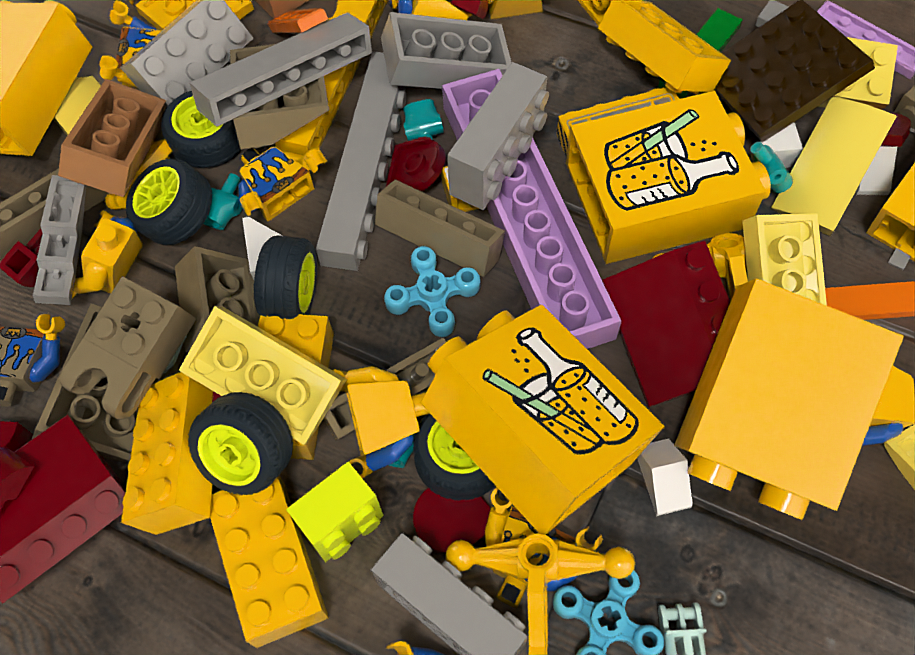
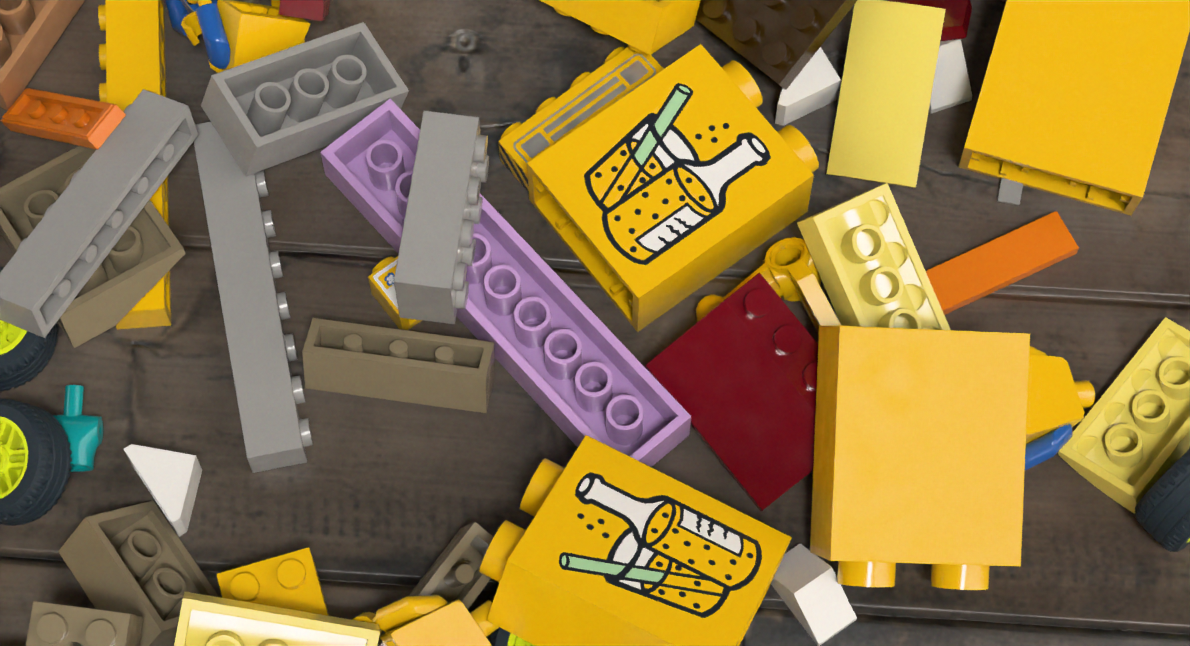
camera: 25 degrees left, 5 degrees up
(276, 179) = (137, 371): torso -> none
(285, 277) = (228, 515): black wheel -> none
(417, 163) = (326, 281): dark red tile -> none
(422, 120) = (308, 211): teal piece -> none
(432, 291) = (414, 444): medium azure gear -> none
(779, 176) = (816, 126): teal piece -> none

